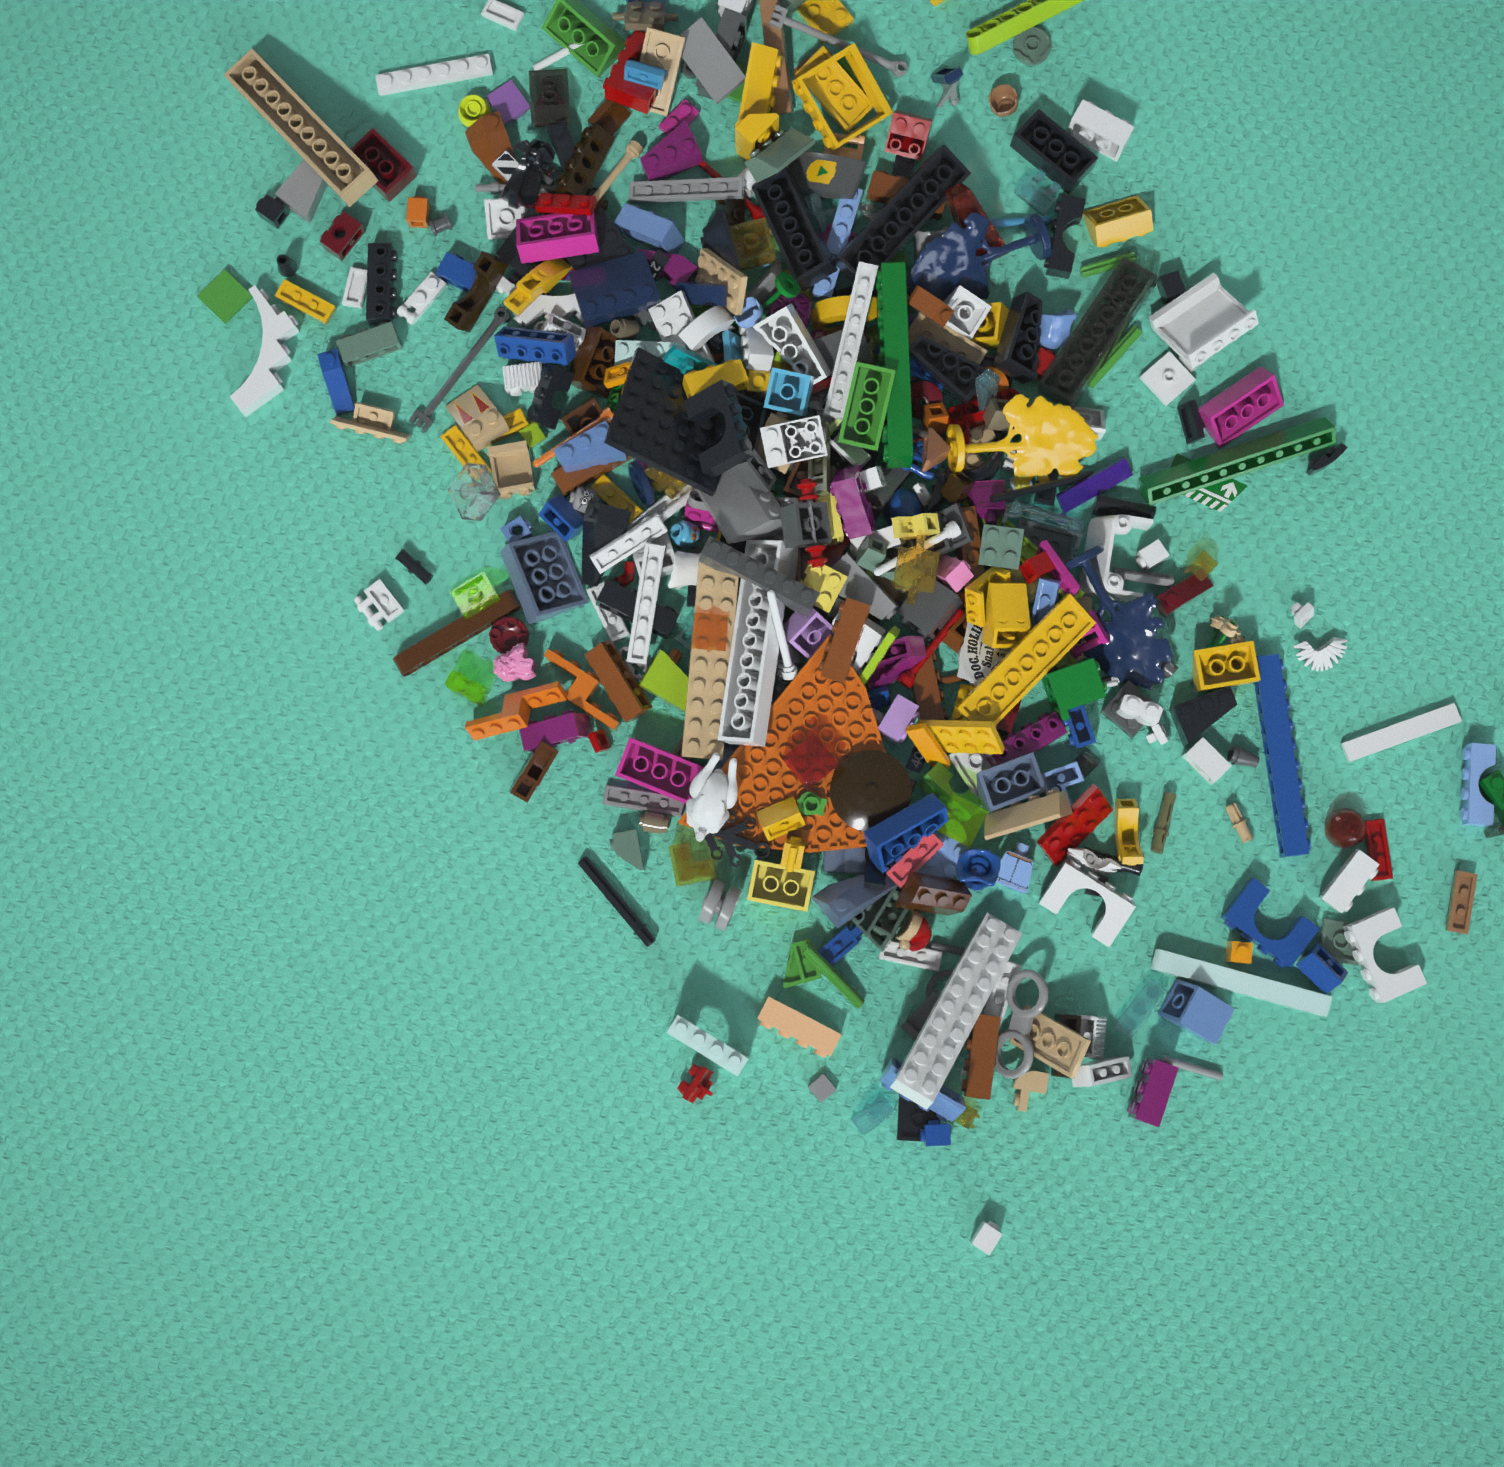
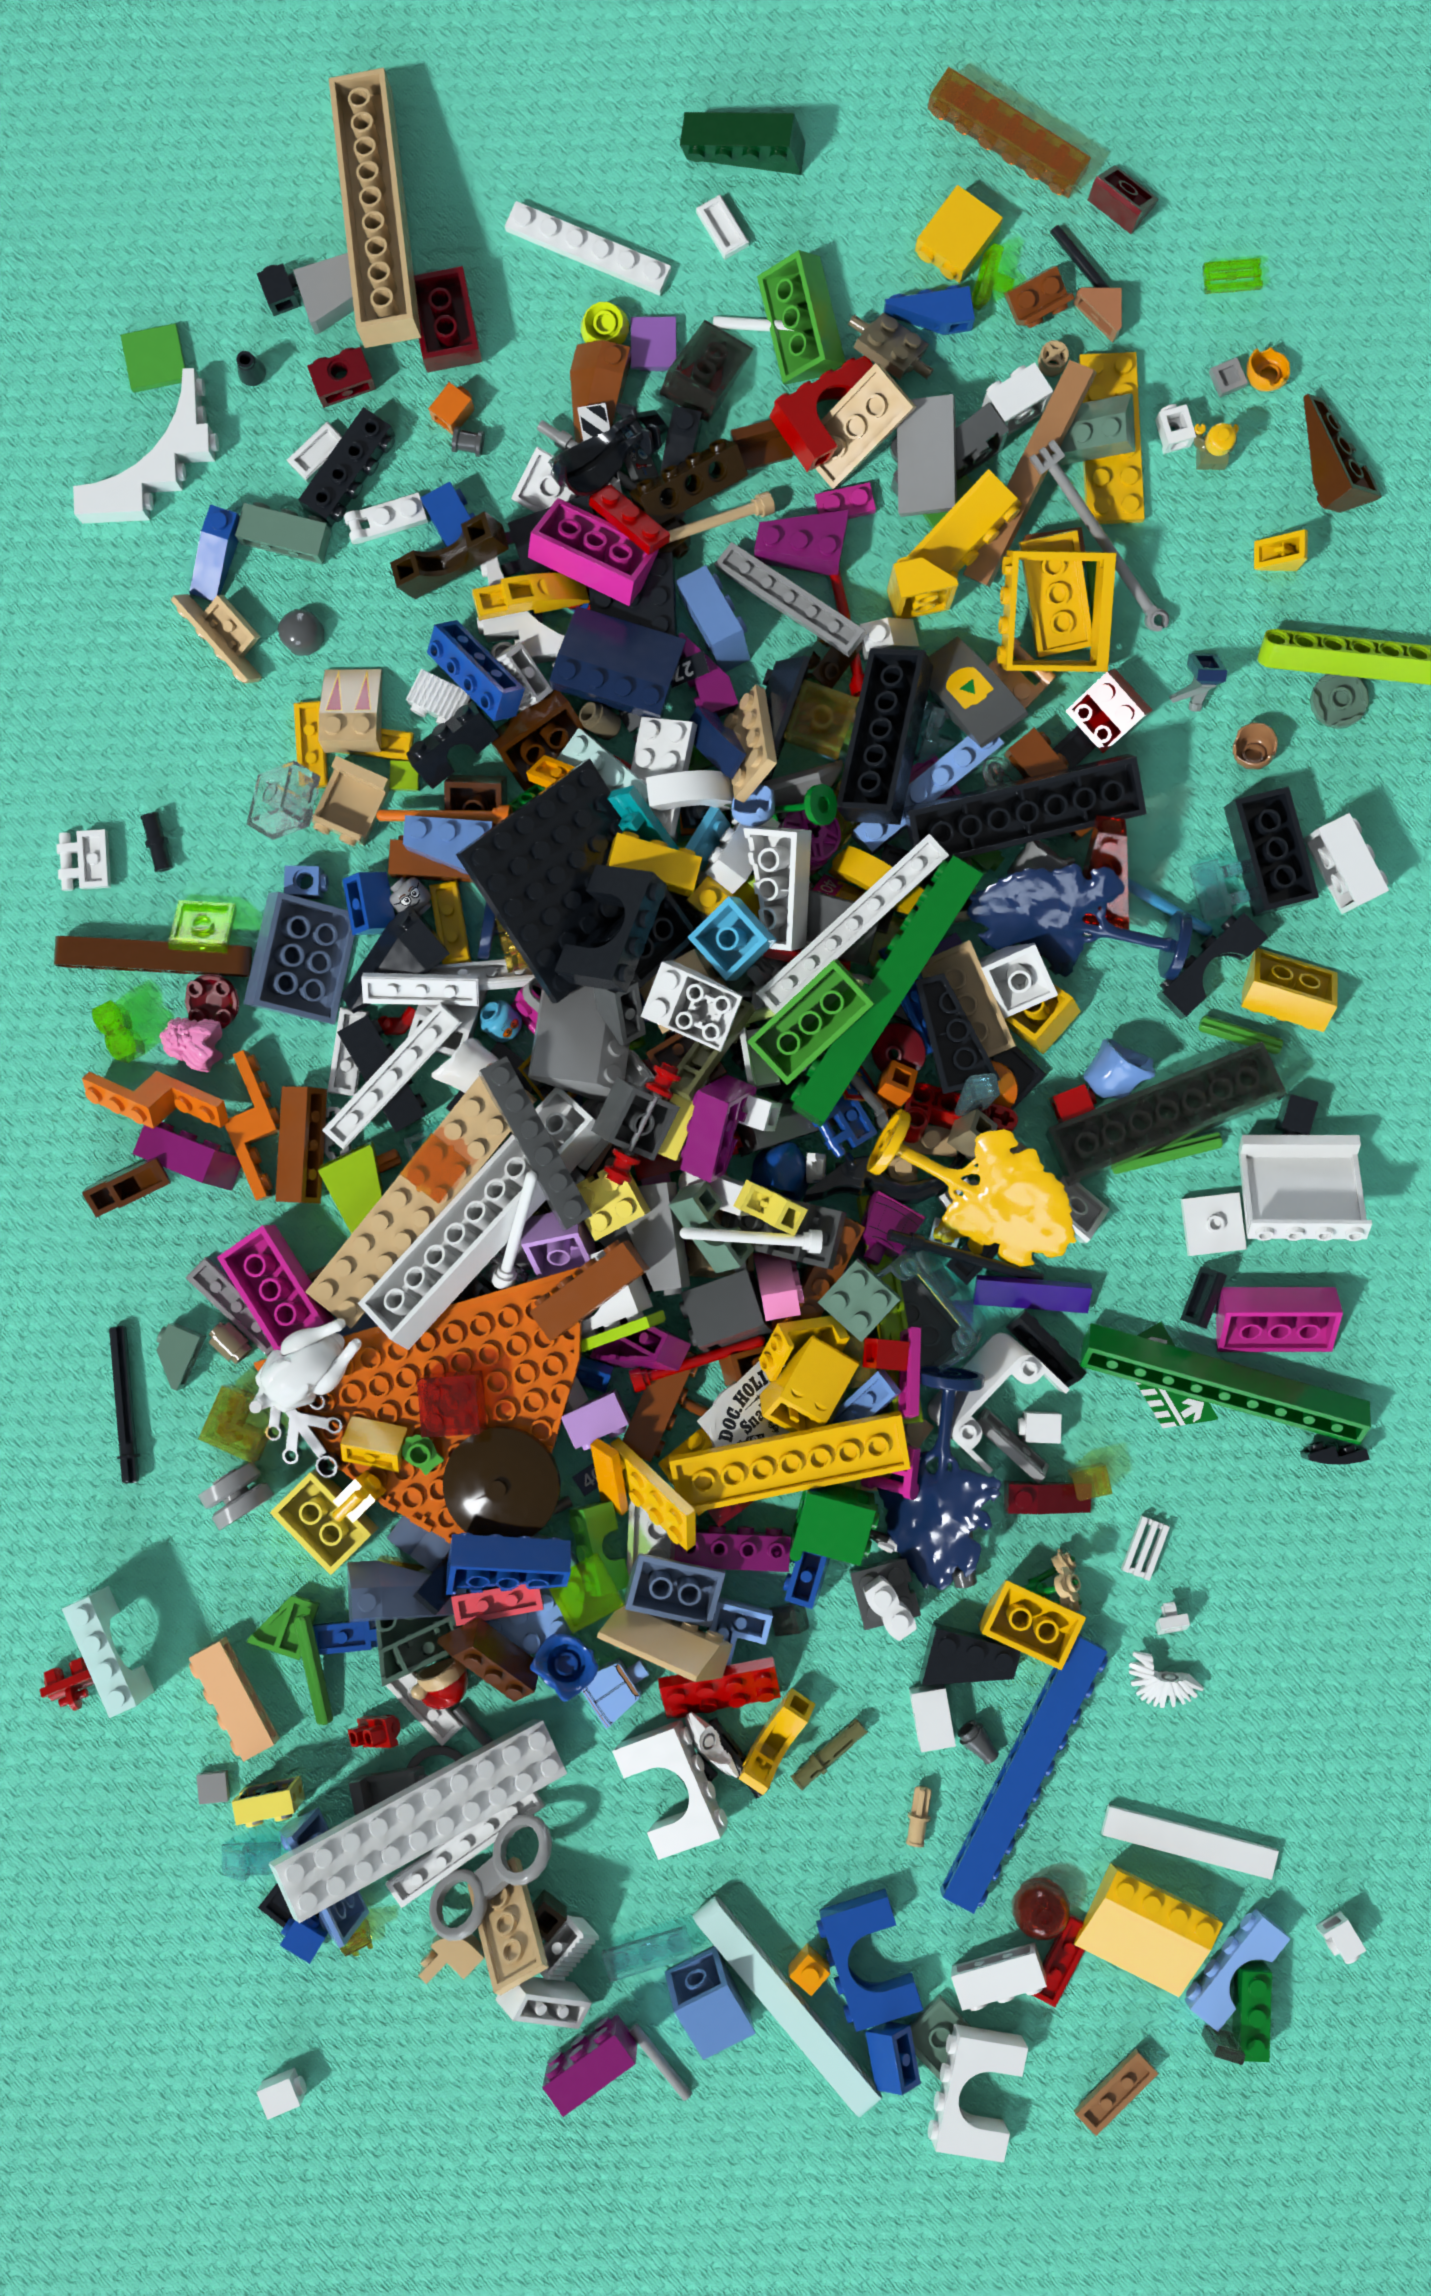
camera: 35 degrees right, 5 degrees up
(305, 301) = (244, 429): yellow plate -> none
(416, 394) = (301, 632): none -> dark grey hair
(424, 417) = (292, 666): dark grey hinge -> none
(599, 741) = (231, 1201): red tile -> none
(644, 74) = (835, 420): dark azure panel -> none
(777, 153) = (929, 629): sand green slope -> none
(860, 1069) = (268, 1800): none -> light yellow piece
(894, 987) = (375, 1731): none -> red hips
(916, 569) = (734, 1261): clear yellow plate -> none
(930, 306) = (979, 947): dark orange slope -> none
(934, 450) = (864, 1125): nougat slope -> none
(957, 487) = (859, 1191): dark brown panel -> none
(981, 1057) = (416, 1887): dark orange brick -> none
(1019, 339) = (1064, 1058): black wedge -> none
(1159, 734) = (898, 1650): white tile -> none
(1261, 567) = (1144, 1551): none -> white tile
(1413, 797) = (1147, 1930): none -> yellow slope

